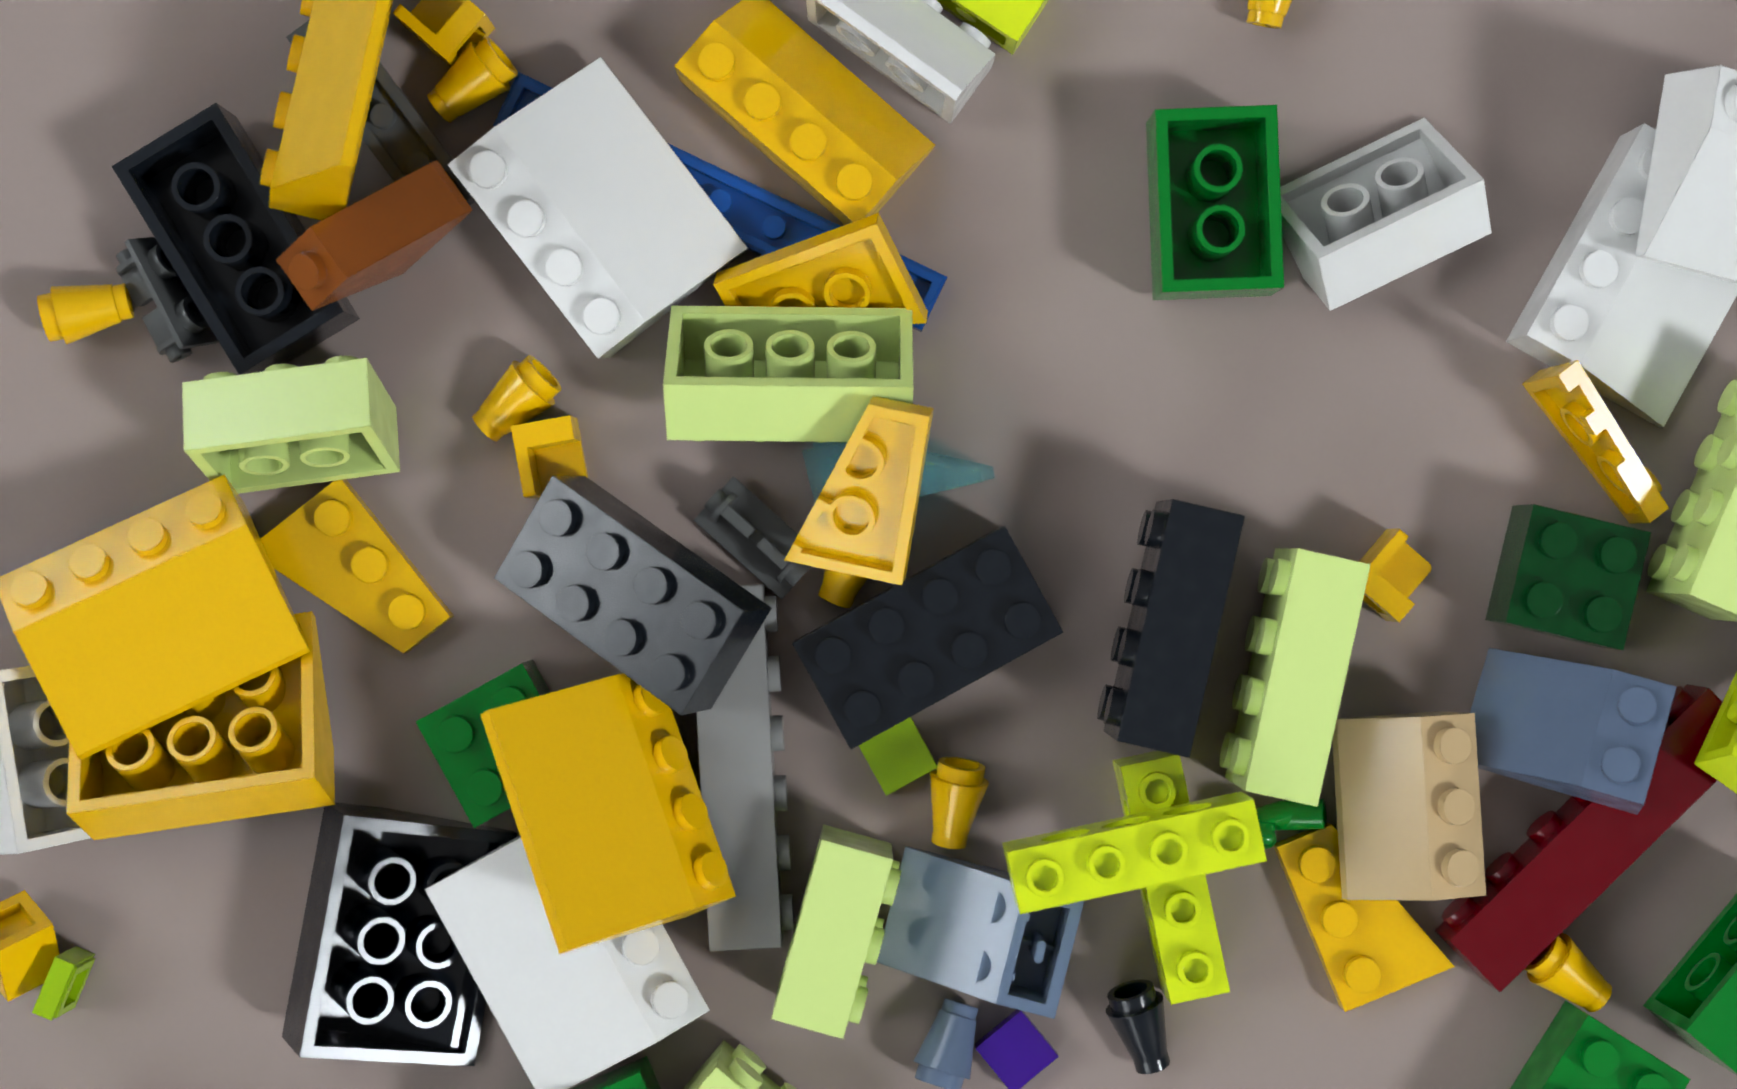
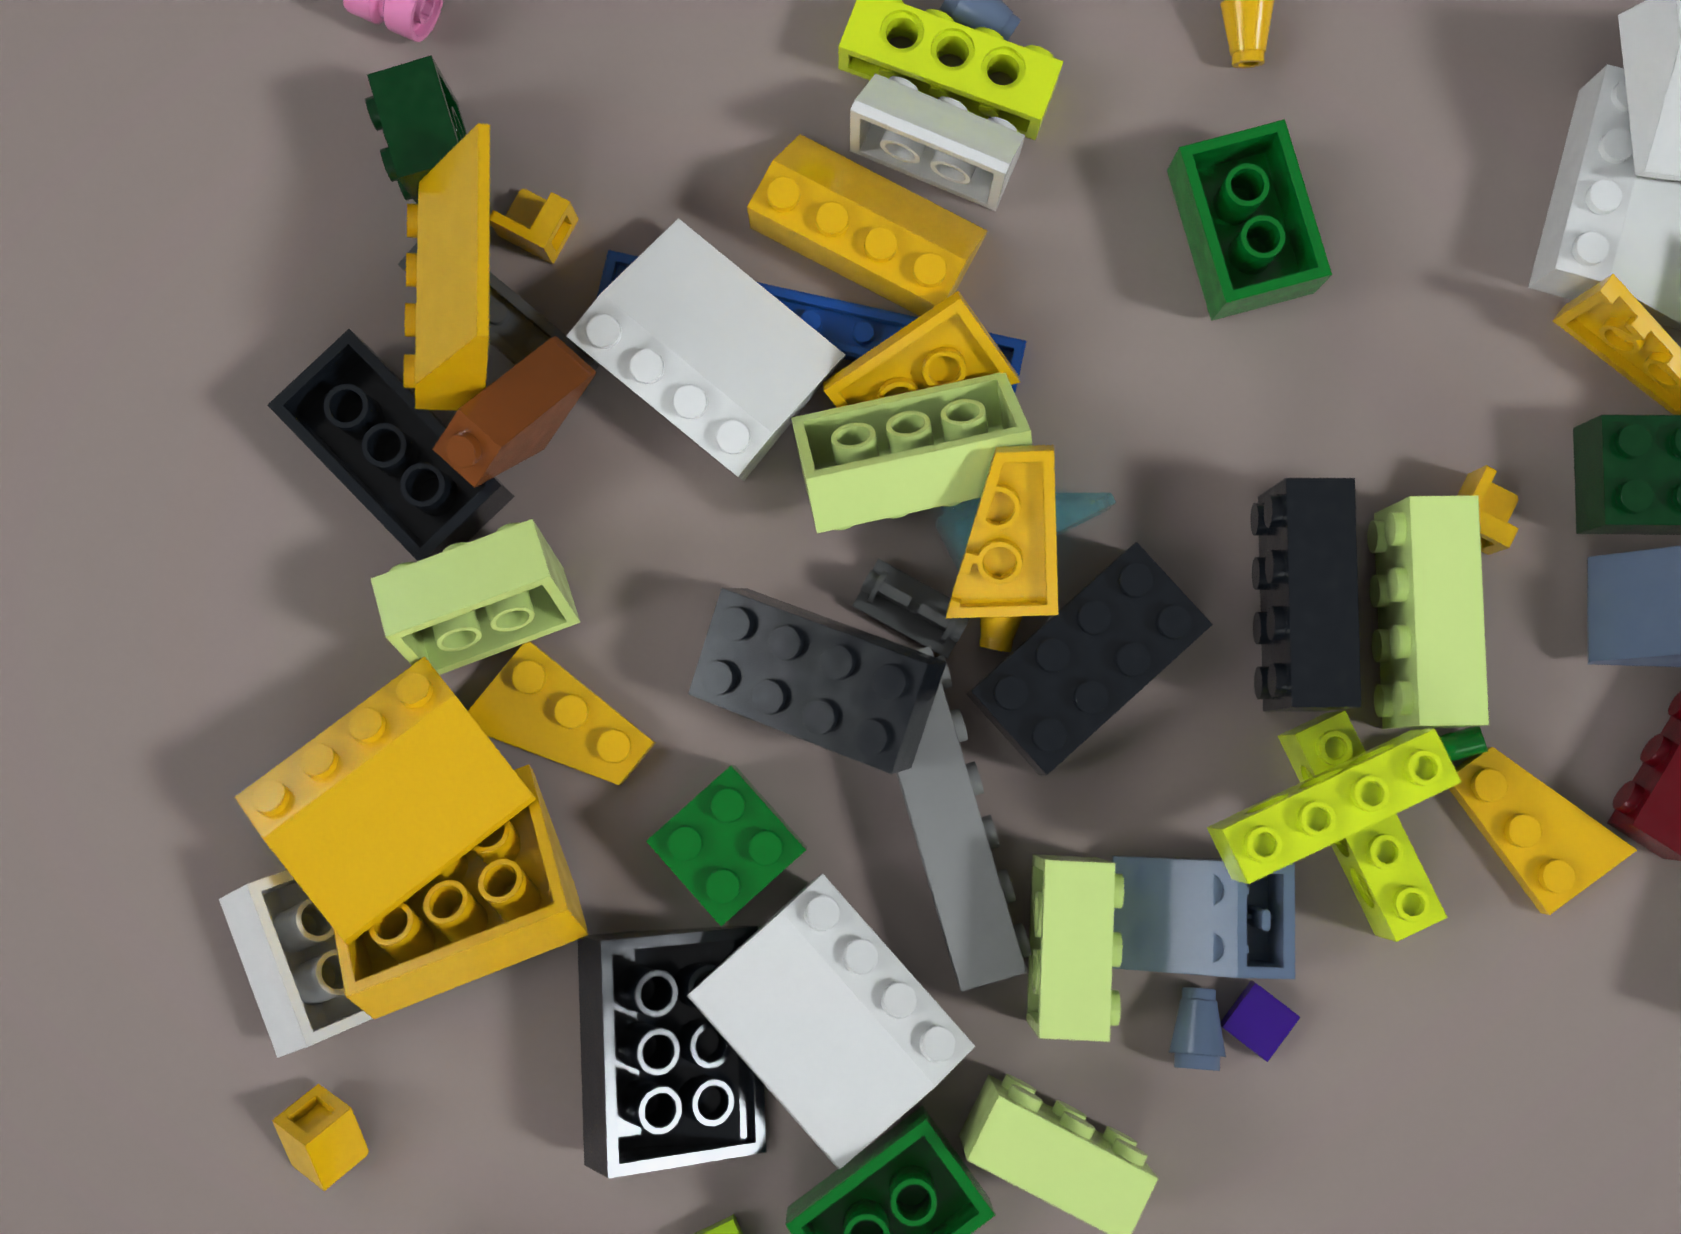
camera: 10 degrees left, 5 degrees down
(64, 983) = (372, 1162): lime tile -> none
(83, 310) = (266, 543): yellow cone -> none
(176, 321) = (324, 499): dark grey hinge -> none
(472, 80) = (569, 265): yellow cone -> none
(517, 397) = (670, 533): yellow cone -> none
(547, 450) = (707, 570): yellow panel -> none
(607, 810) = (842, 879): yellow slope -> none
(898, 756) = (1086, 775): lime tile -> none
(955, 798) = (1148, 801): yellow cone -> none
(1140, 1023) = (1366, 967): black cone -> none
(1382, 213) = (1398, 197): white slope -> none
(1408, 807) = (1563, 713): tan slope -> none

